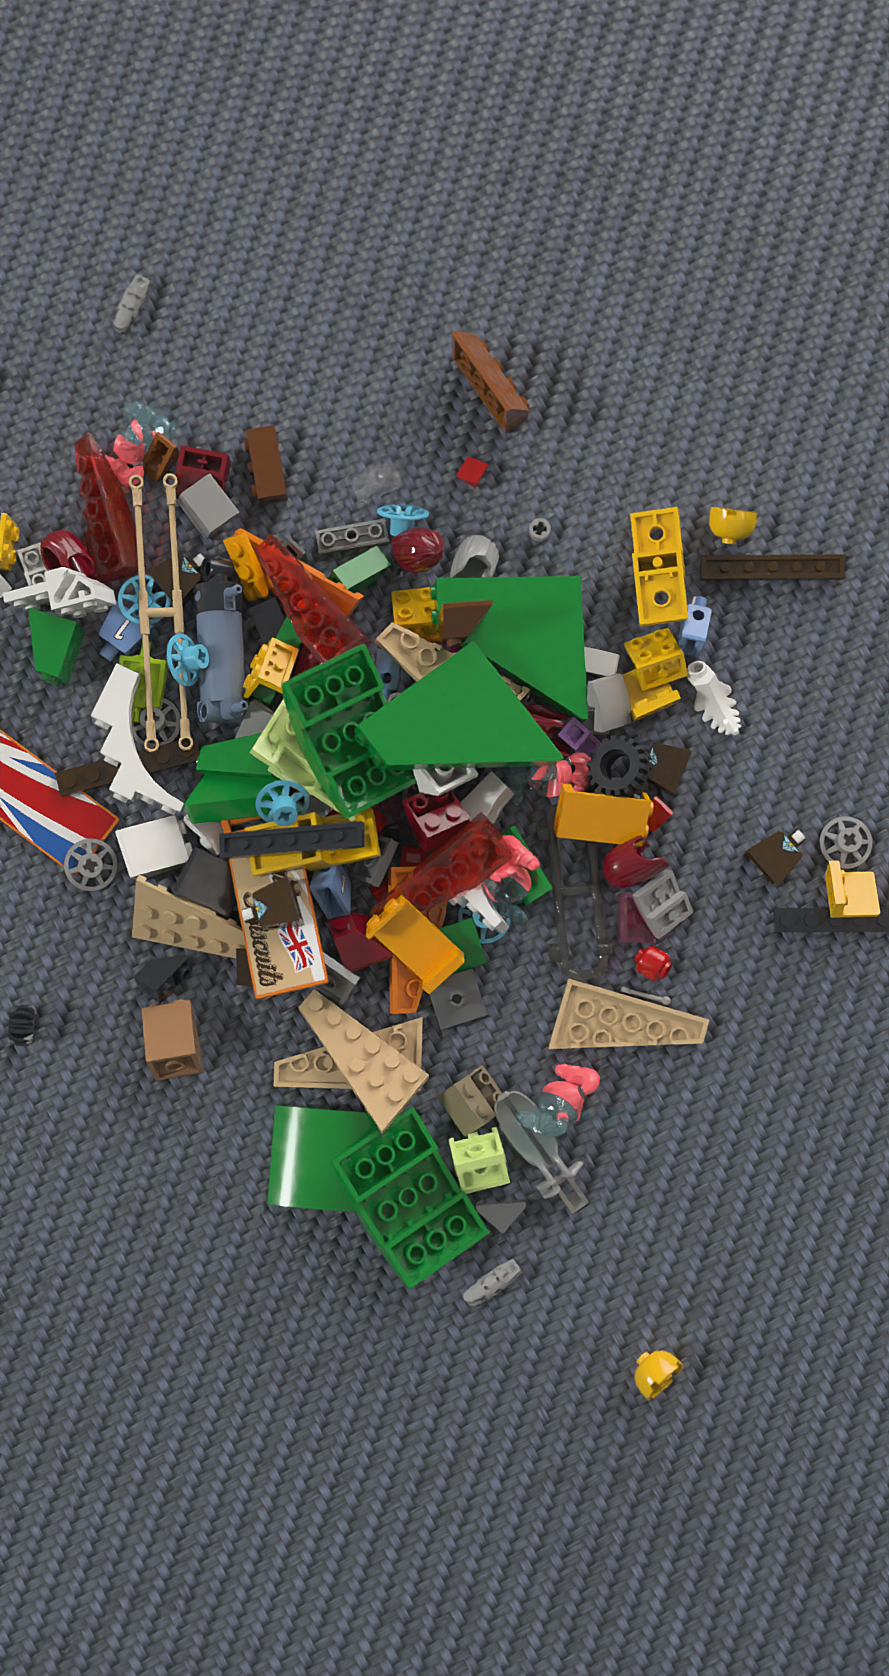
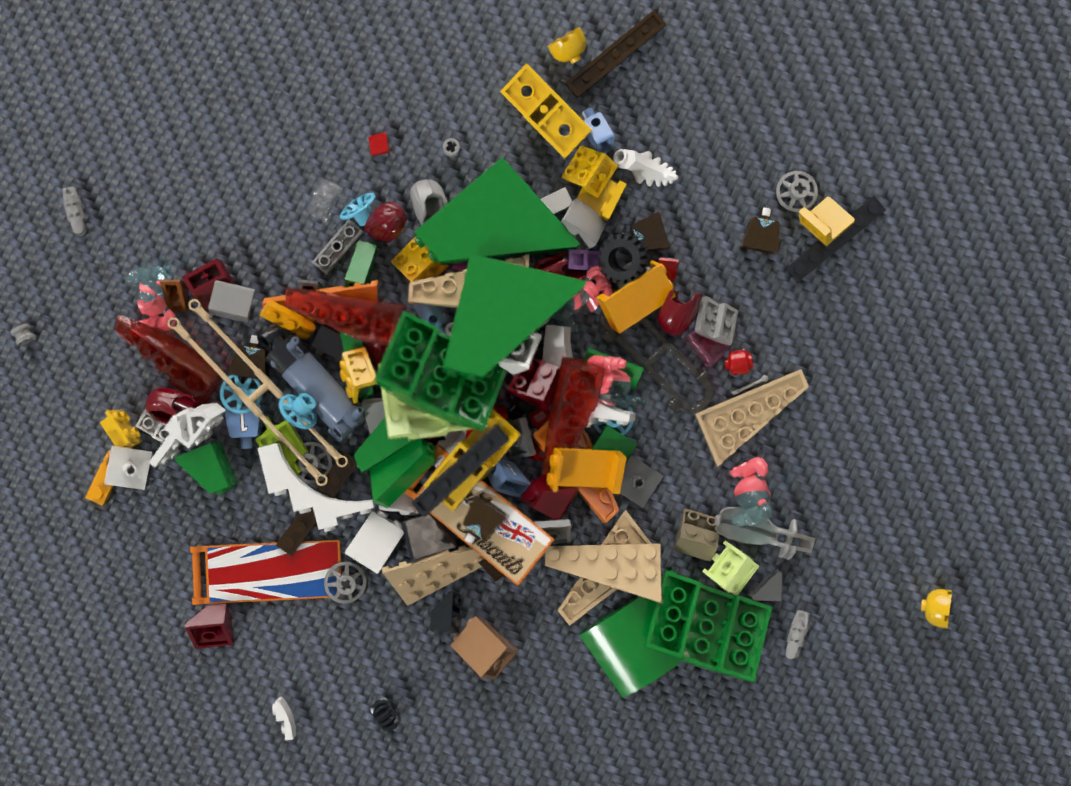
camera: 40 degrees left, 5 degrees up
(265, 465) = (246, 245): reddish brown brick -> none
(283, 806) = (437, 454): medium azure wheel -> none
(460, 619) = (451, 247): reddish brown slope -> none
(488, 380) = (342, 77): dark orange slope -> none

